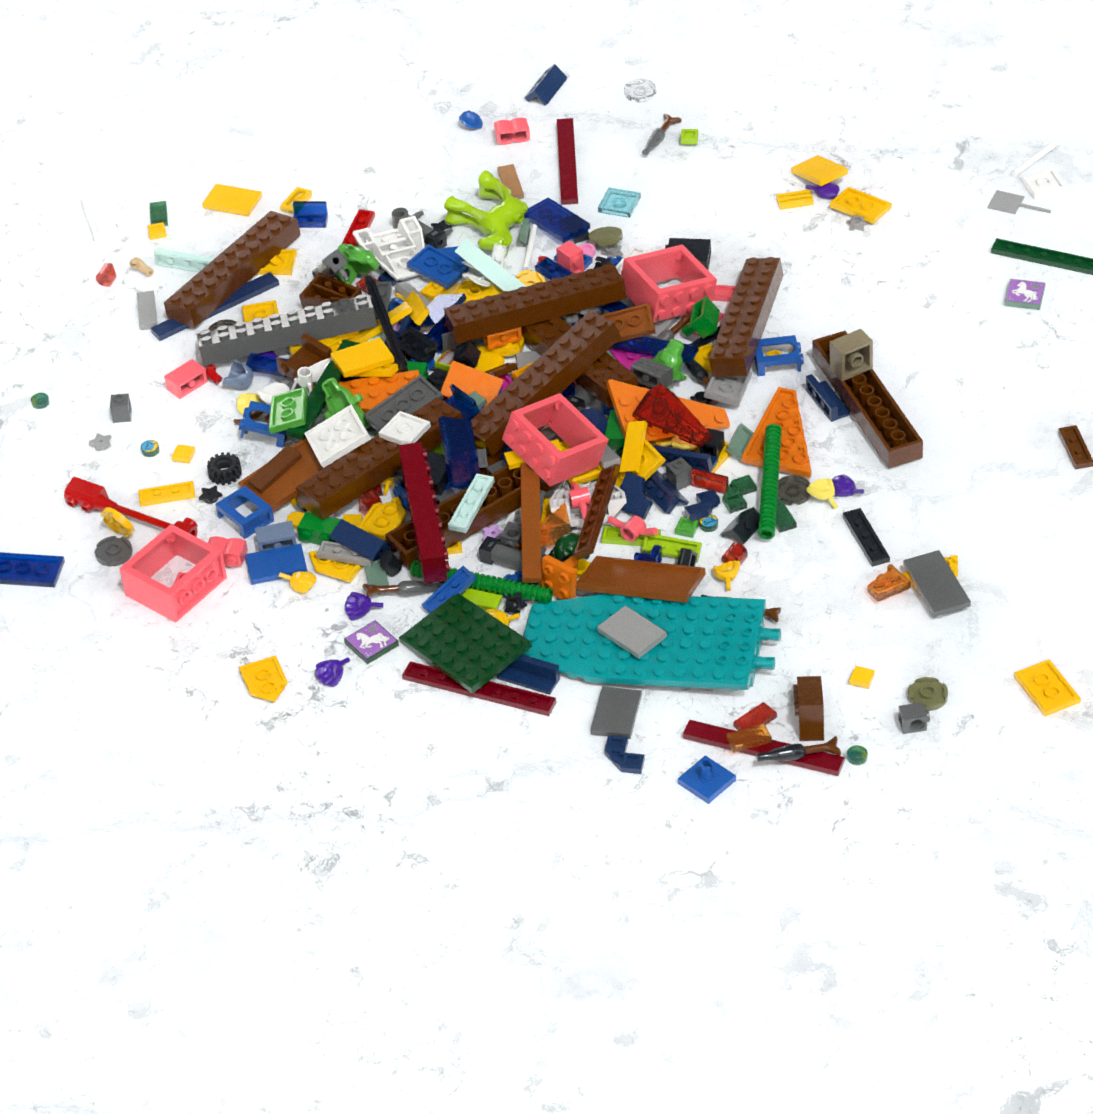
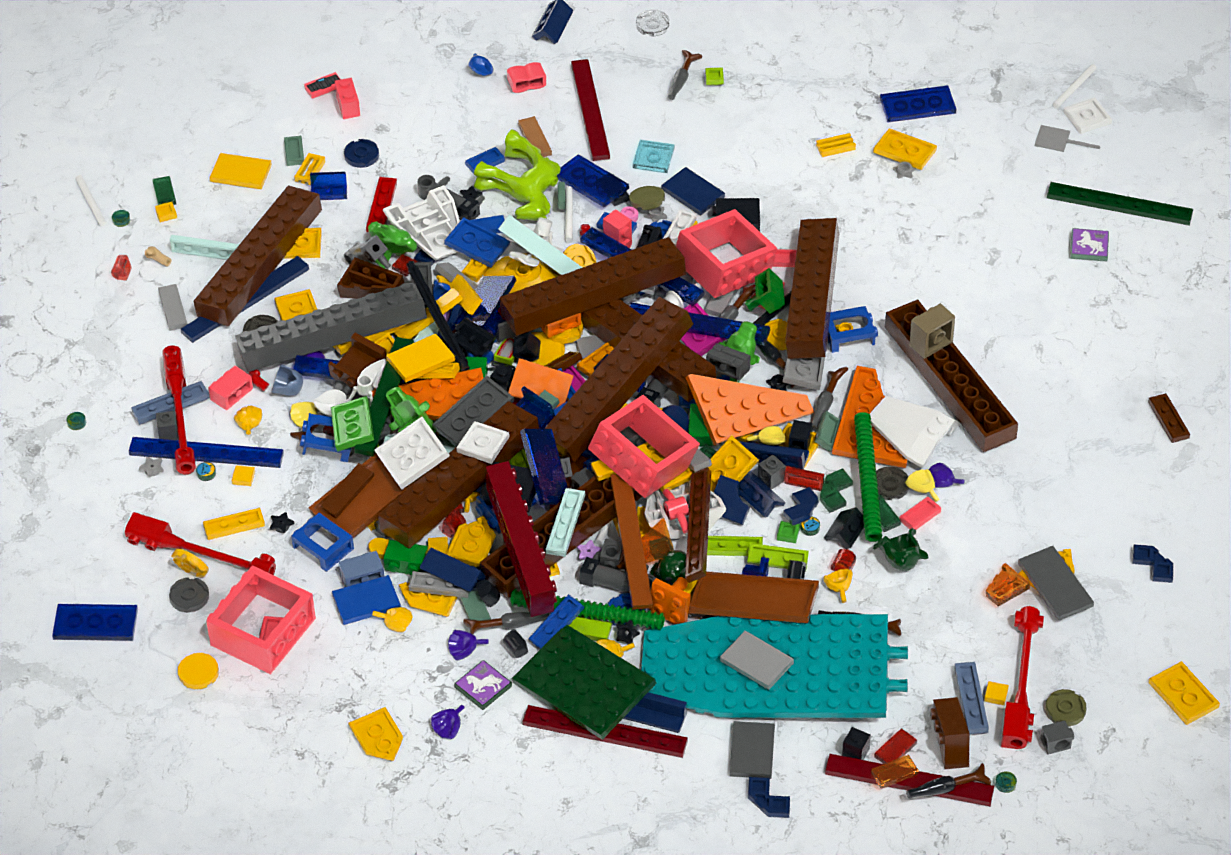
camera: 10 degrees left, 5 degrees up
(108, 615) = (198, 670): none -> yellow tile
(114, 234) = (121, 218): none -> clear green tile
(134, 387) = (190, 395): none -> sand blue plate
(136, 368) = (175, 382): none -> red bar
(154, 432) = (208, 452): none -> clear blue tile
(198, 405) = (248, 418): none -> yellow piece
(226, 475) = (291, 500): black tyre -> none
(232, 549) = (318, 585): coral brick -> none
(284, 184) = (294, 150): none -> sand green tile
(322, 131) = (322, 85): none -> tile
(341, 142) = (347, 98): none -> coral brick
(346, 189) = (361, 153): none -> dark blue tile
(408, 608) = (515, 643): none -> black brick
(468, 196) = (490, 157): none -> blue tile
(632, 528) = (736, 538): coral piece -> none
(633, 321) = (697, 299): dark orange tile -> none
(633, 447) = (723, 447): yellow tile -> none
(649, 232) = (692, 191): none -> dark blue tile
(666, 411) = (752, 406): clear red wedge -> none
(706, 779) = (858, 820): blue tile -> none
(716, 712) = (856, 744): none -> black brick
(744, 413) = (826, 398): none -> dark grey piece
(790, 549) = (902, 551): none -> dark green hair
(817, 518) = (920, 513): none -> coral tile
(819, 170) = (857, 111): yellow tile -> none
(821, 442) = (911, 428): none -> white wedge
(826, 399) = (907, 376): dark blue panel -> none
(827, 191) = (866, 132): dark purple piece -> none
(836, 679) = (971, 697): none -> sand blue plate
(866, 537) = (974, 532): black tile -> none
(878, 696) = (1017, 714): none -> red bar
(880, 167) = (918, 103): none -> clear blue tile
(1035, 565) = (1150, 556): none -> dark blue tile

